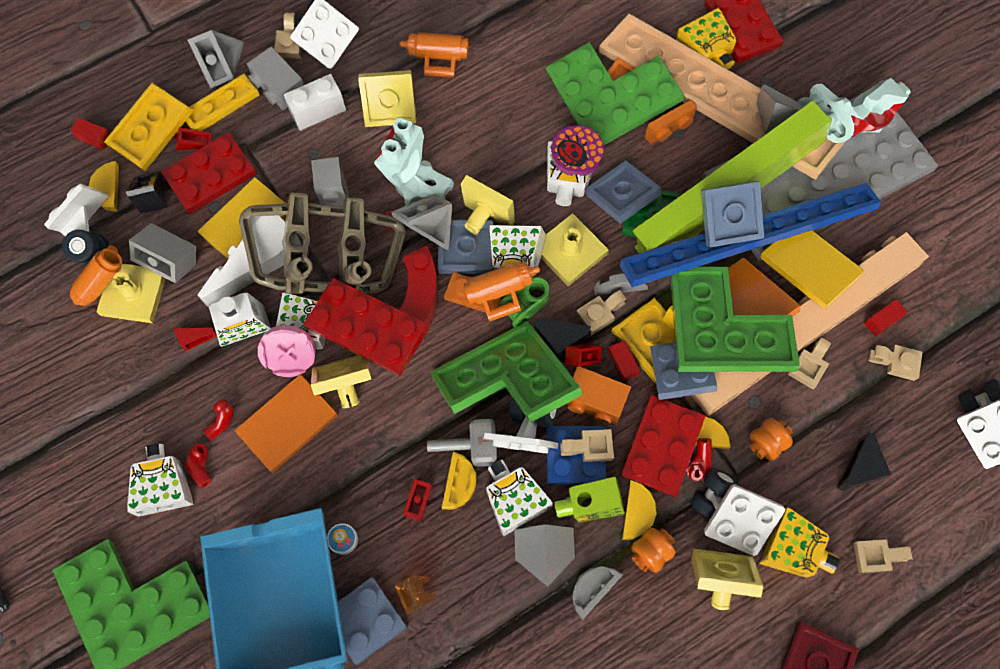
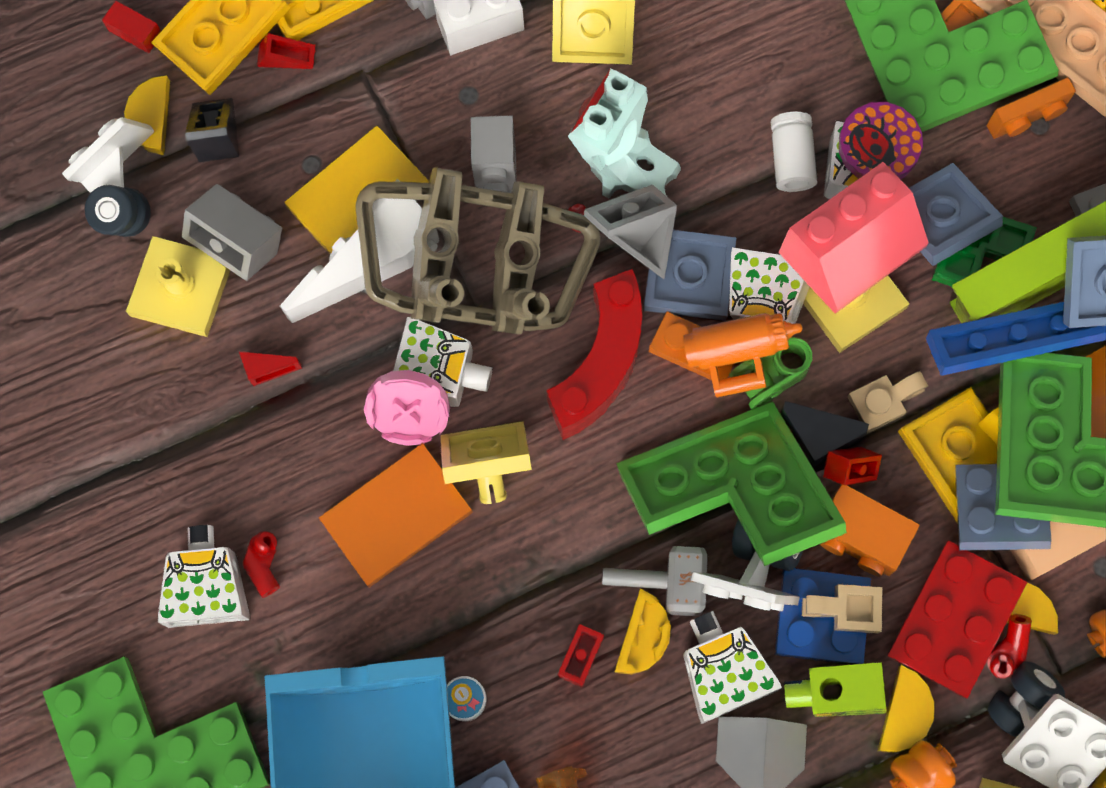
camera: 10 degrees right, 5 degrees up
(96, 276) = (131, 258): orange piece -> none
(209, 173) = (307, 109): red plate -> none
(223, 419) = (301, 502): red arm -> none
(238, 318) = (337, 348): white torso -> none
(366, 326) = (531, 386): red plate -> none
(485, 205) = (729, 214): light yellow tile -> none
(524, 164) = (793, 151): none -> white piece
(567, 208) = (856, 238): none -> coral slope
(616, 283) = (915, 360): light grey tile -> none
(623, 361) = (911, 481): red piece -> none

